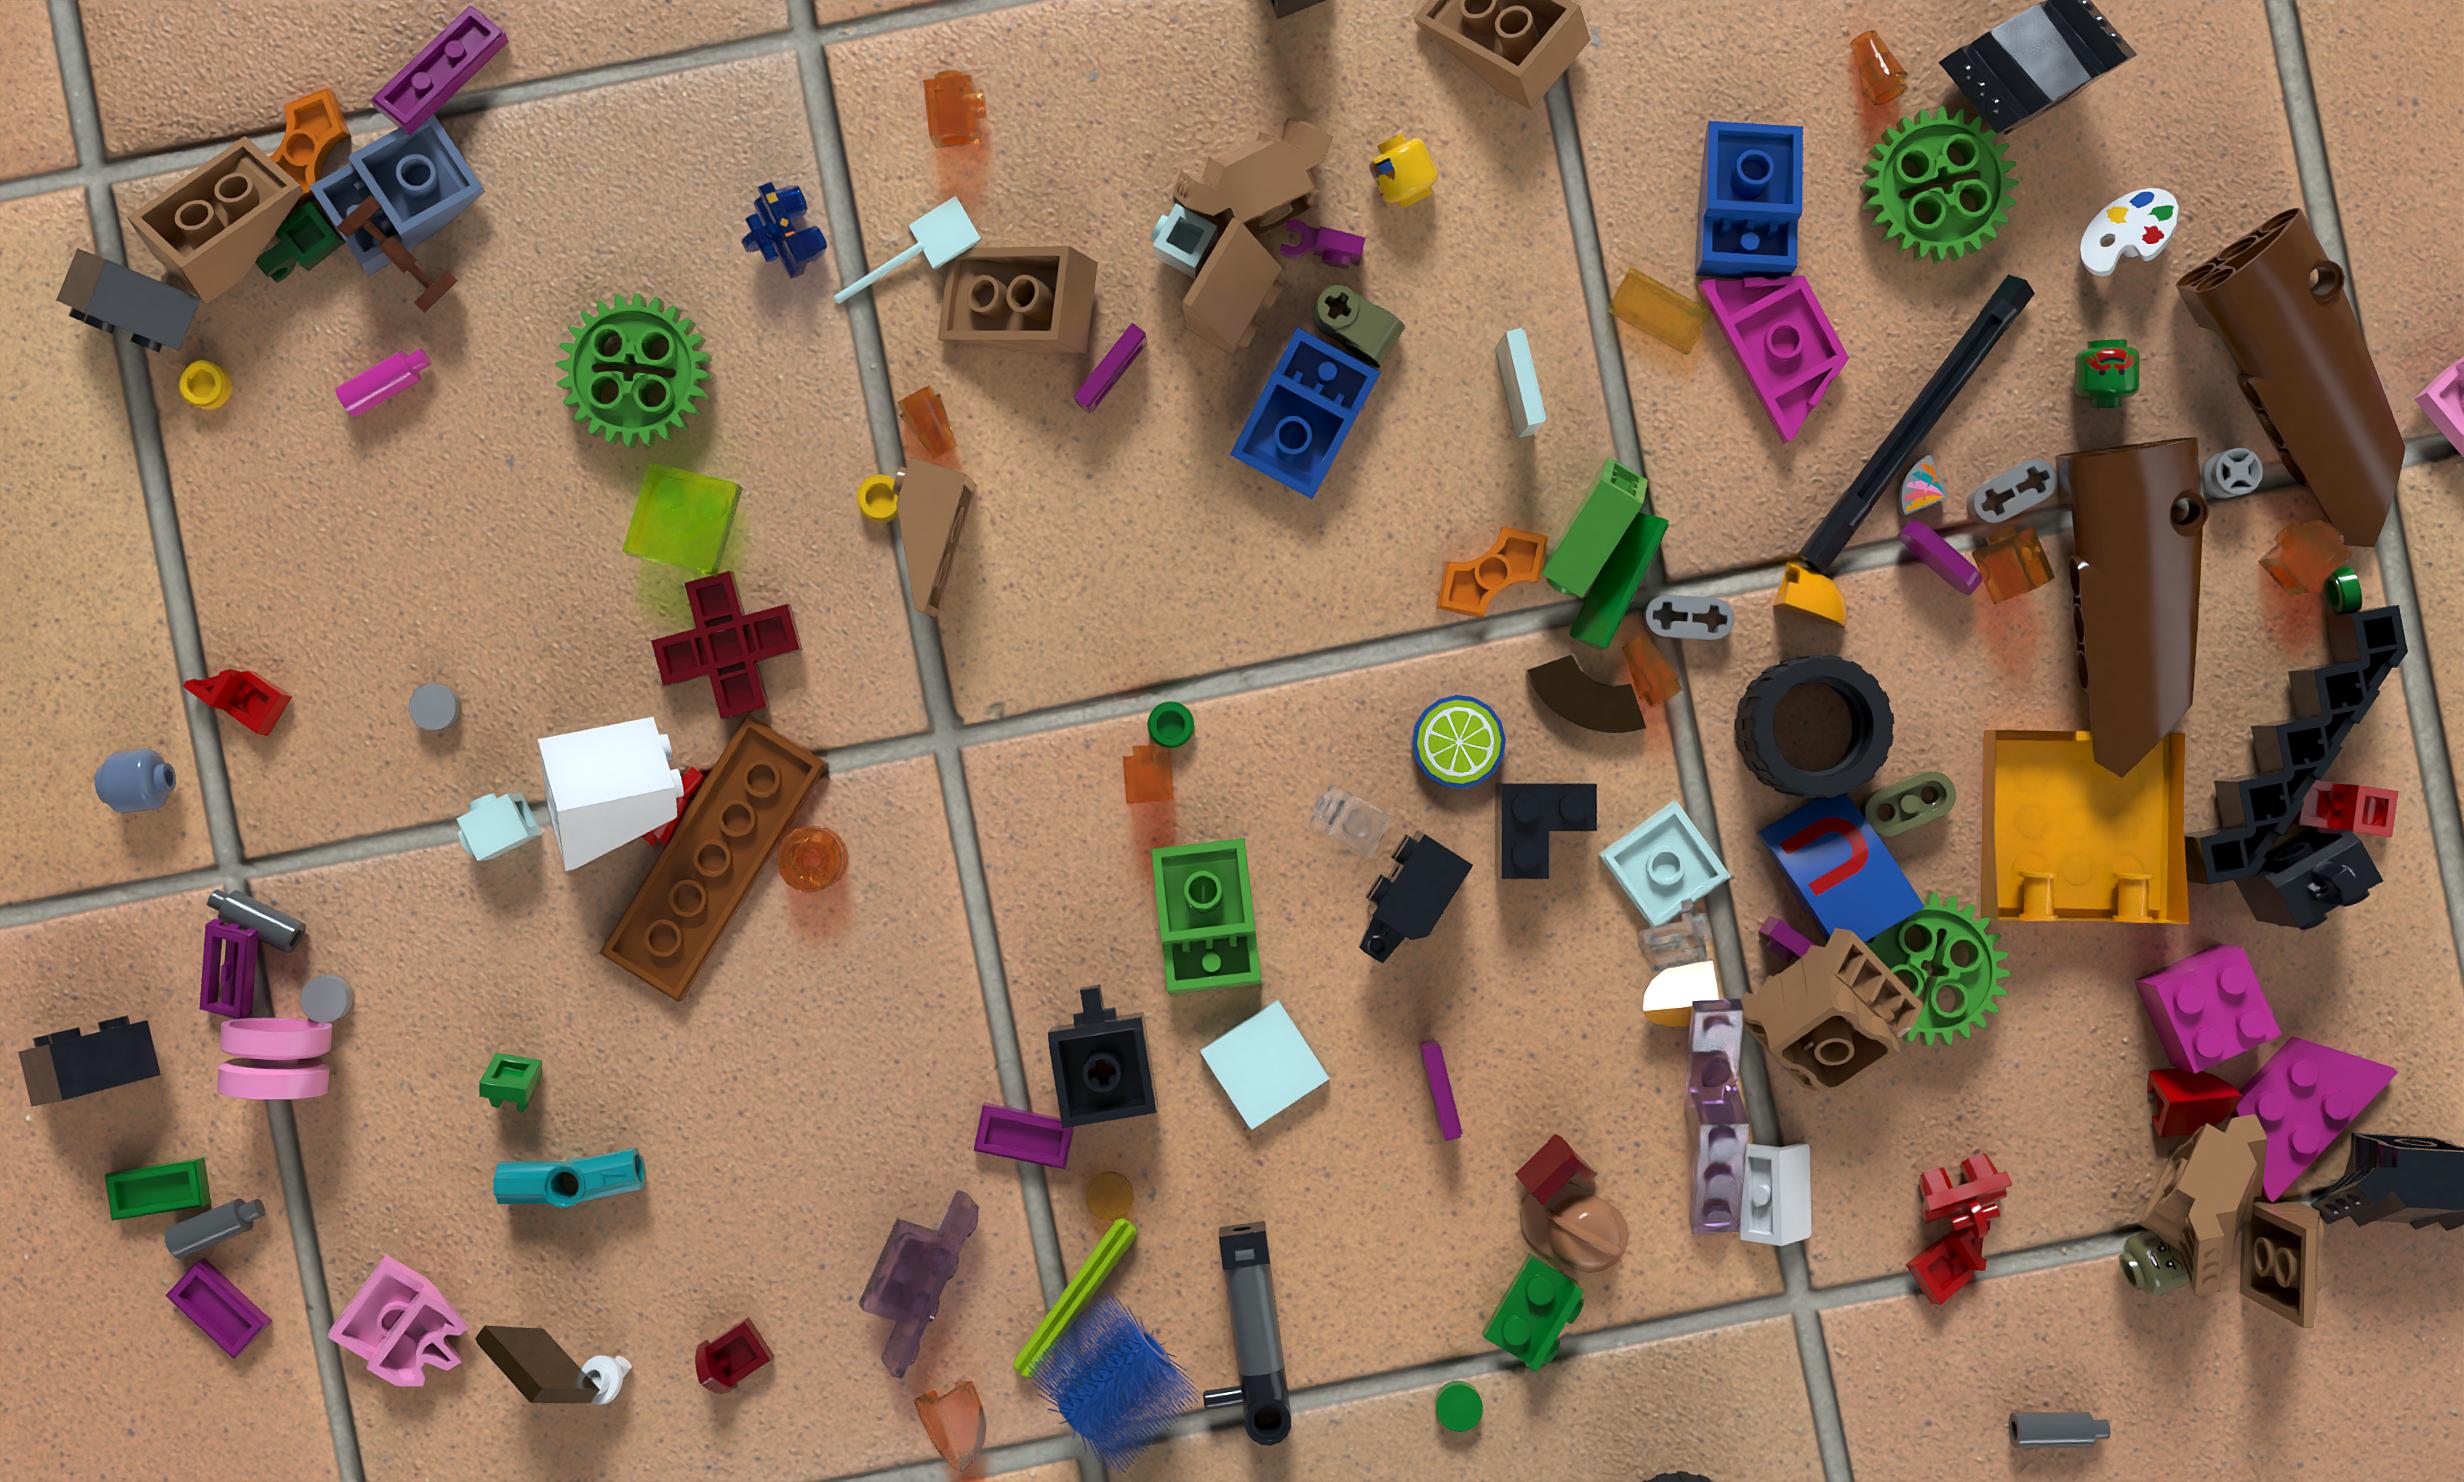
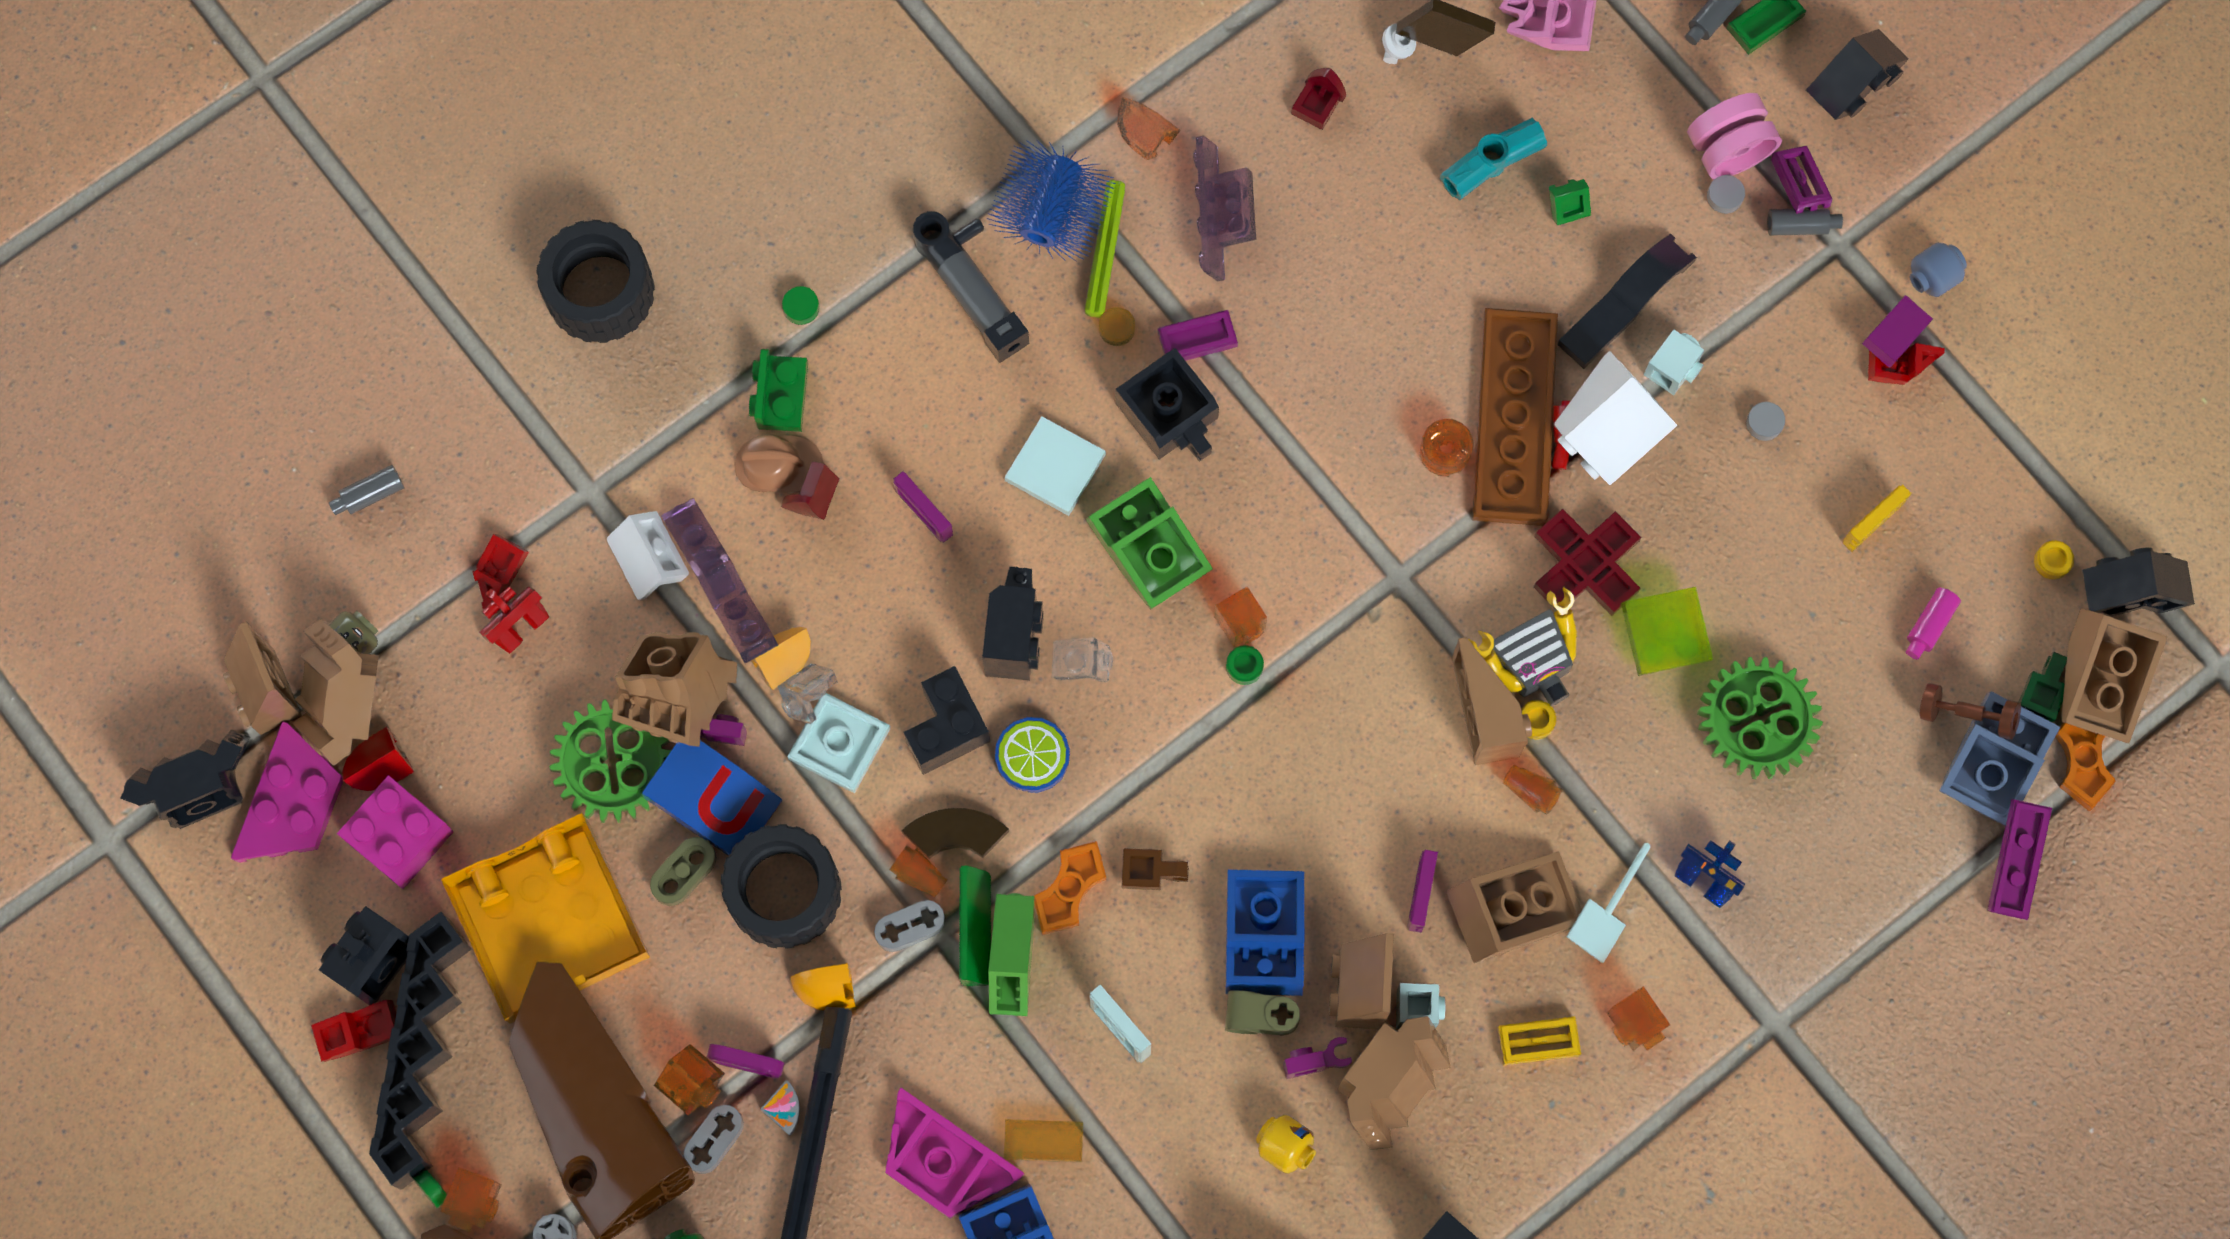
camera: 155 degrees right, 15 degrees down
(224, 732) = (1897, 331): none -> magenta tile
(374, 529) = (1876, 517): none -> yellow tile
(512, 929) = (1625, 300): none -> black piece
(843, 569) = (1535, 652): none -> torso
(1106, 161) = (1506, 1044): none -> yellow tile
(1399, 547) = (1145, 869): none -> reddish brown plate

